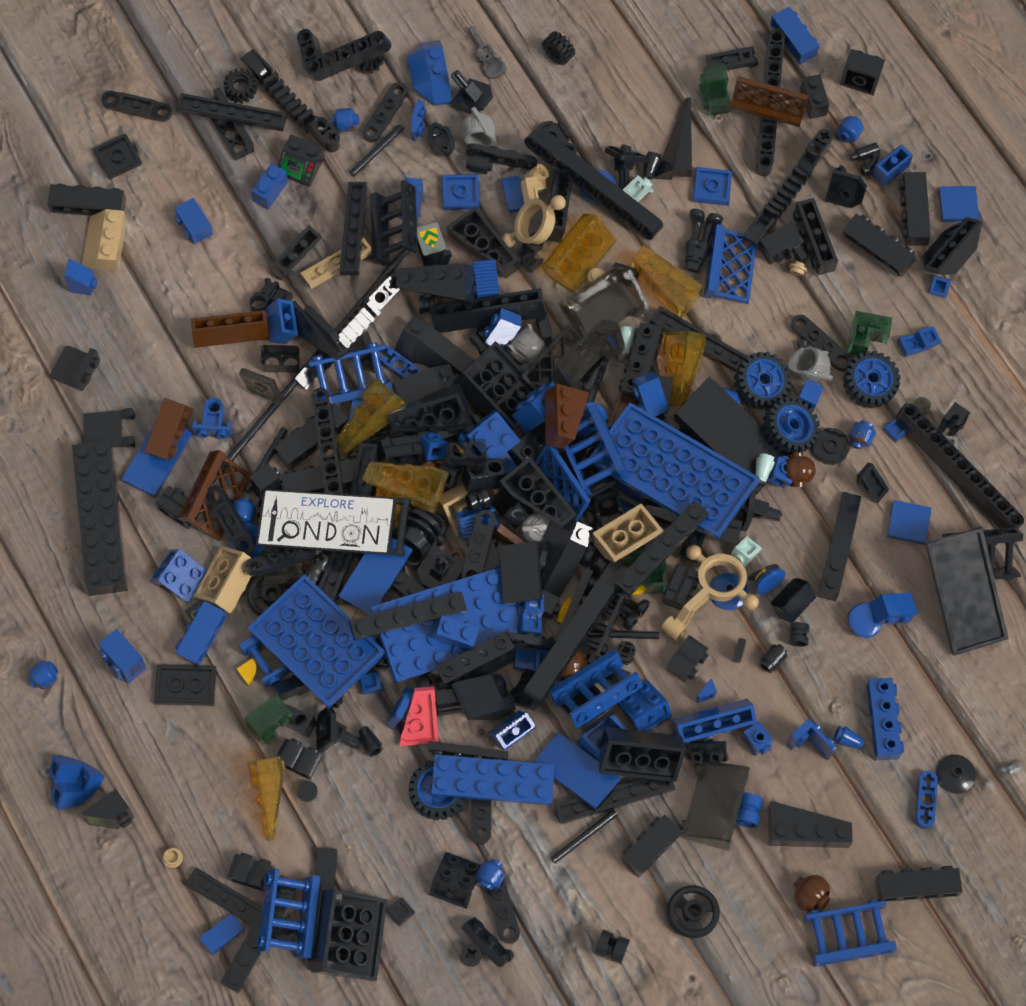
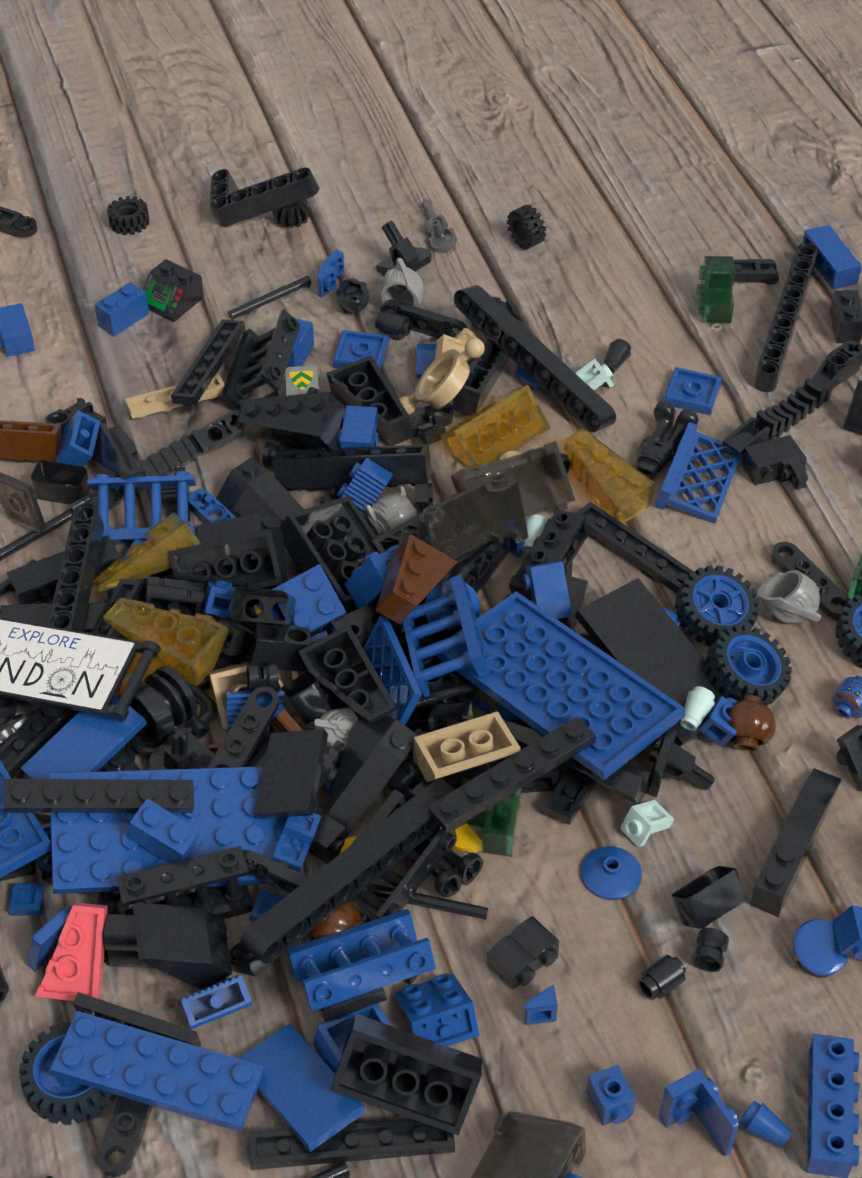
camera: 15 degrees right, 20 degrees down
(231, 112) = (104, 230): black tile -> none
(238, 128) = (104, 250): black fence -> none
(295, 252) = (125, 375): black brick -> none
(327, 137) = (196, 255): black piece -> none
(345, 120) = (240, 260): blue head -> none
(385, 112) = (293, 263): black plate -> none
(430, 72) = (361, 234): blue wedge -> none
(624, 161) = (581, 343): black piece -> none
(626, 656) = (428, 923): black wheel -> none
(676, 626) = (518, 903): tan piece -> none
(678, 152) = (656, 348): black wedge -> none
(680, 587) = (536, 850): black brick -> none
(683, 354) = (609, 557): clear yellow wedge -> none
(709, 751) = (524, 1096): black hips -> none
(715, 720) = (545, 1051): blue brick -> none
(739, 650) = (608, 955): black tile -> none
(762, 106) = (781, 311): reddish brown fence -> none
(767, 578) = (674, 859): blue piece -> none
(797, 268) = (792, 491): tan plate -> none
(810, 393) = (785, 631): blue brick -> none
(815, 236) = (823, 457): black brick -> none
(831, 446) = (804, 708): black tile -> none

